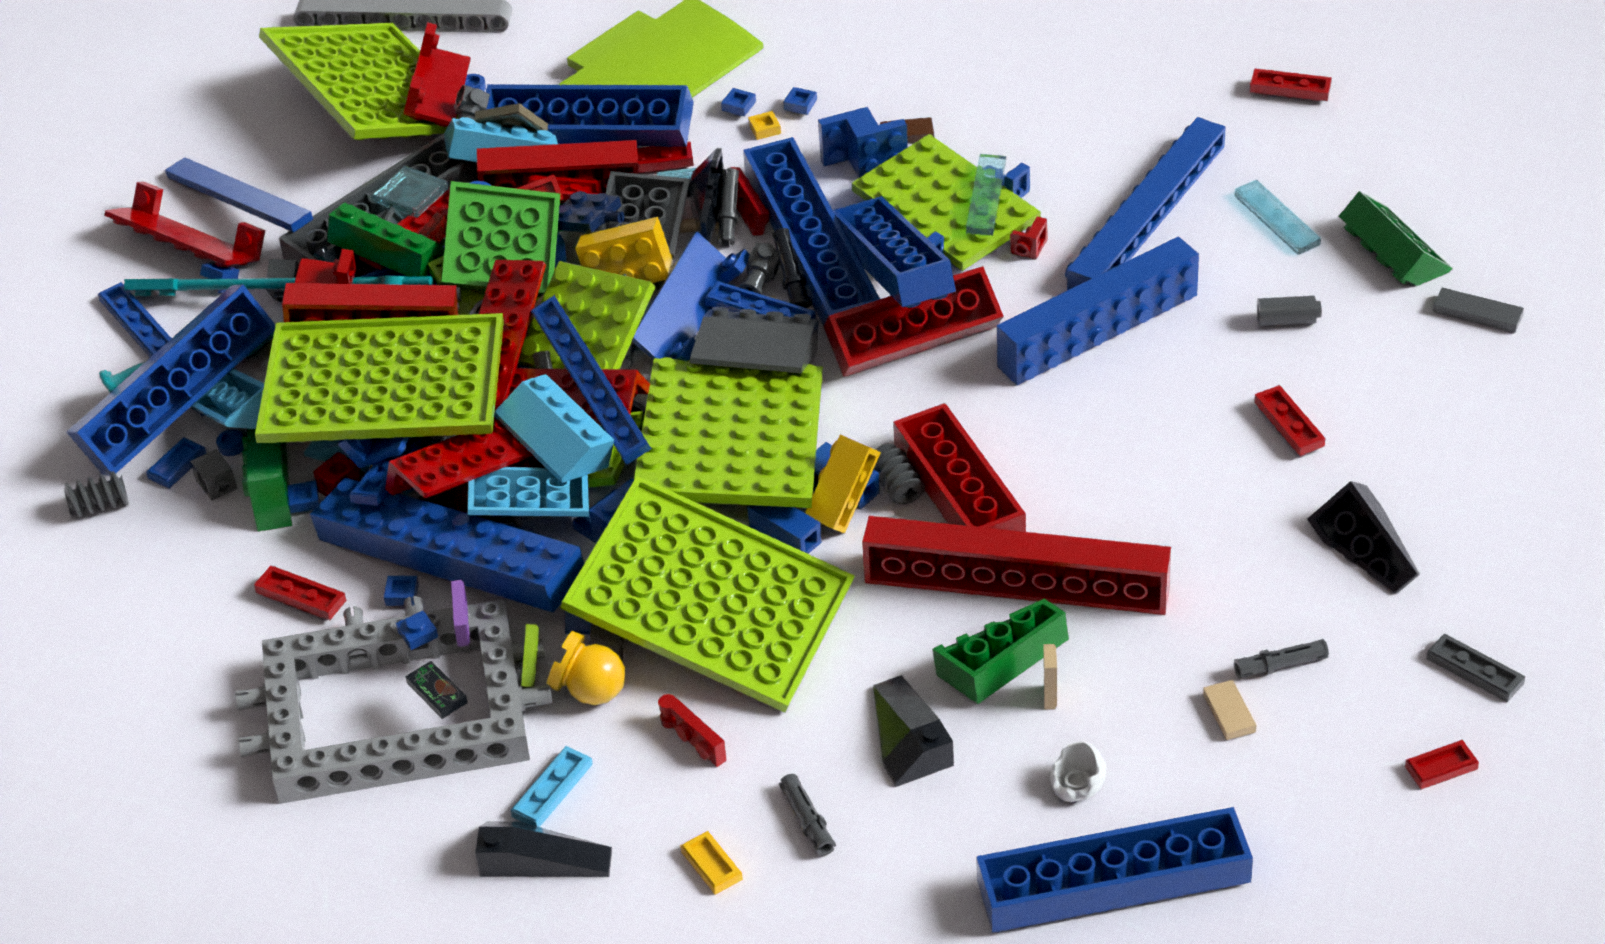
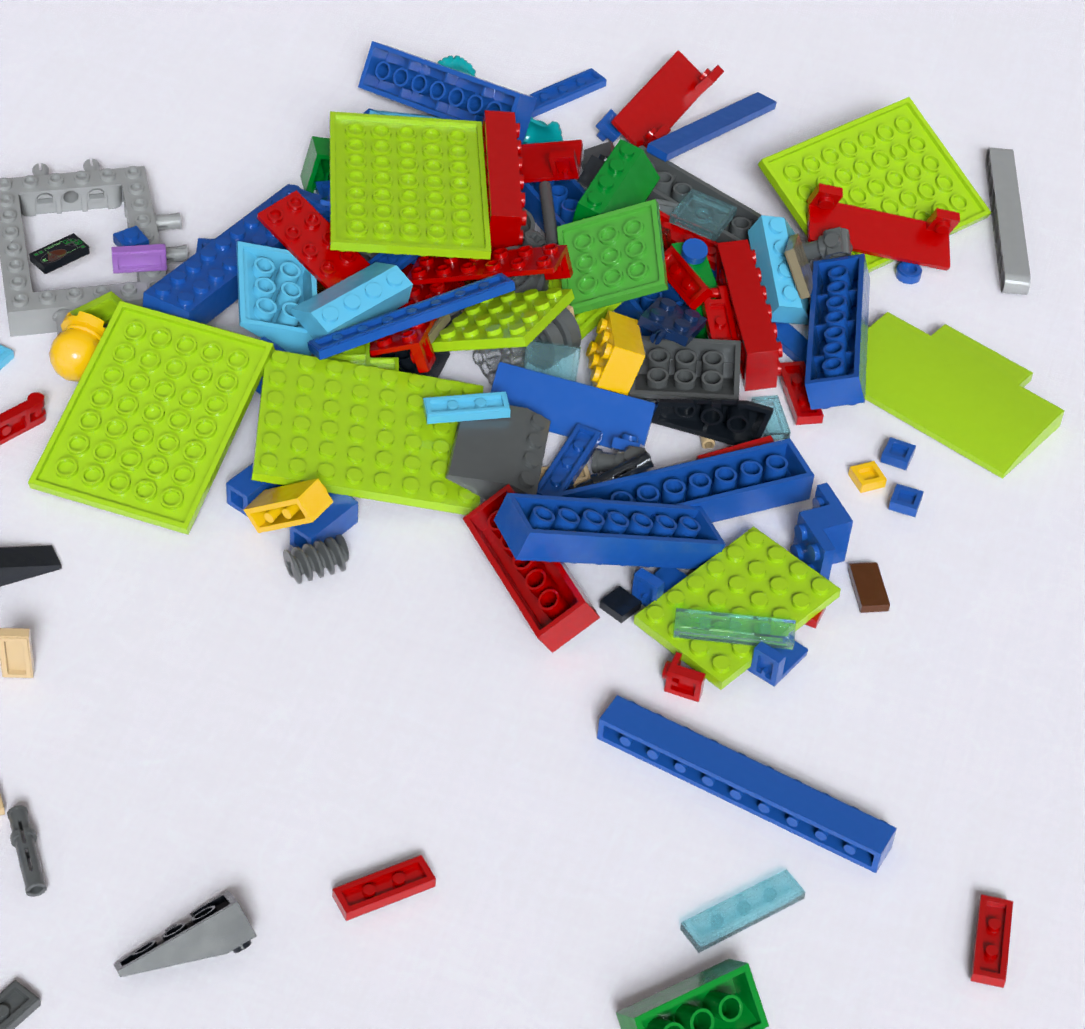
camera: 80 degrees right, 0 degrees up
(95, 494) = (338, 81): dark grey piece -> none
(169, 286) = (595, 100): teal bar -> none
(300, 592) = (215, 196): red plate -> none
(709, 353) = (466, 407): none -> medium azure tile
(727, 217) = (714, 438): dark grey pin -> none
(956, 471) = (301, 601): red brick -> none
(1001, 651) = (62, 624): green wedge -> none
(1017, 565) = (169, 640): red brick -> none
(1097, 310) = (551, 720): blue brick -> none
(1288, 310) = (564, 898): dark grey brick -> none

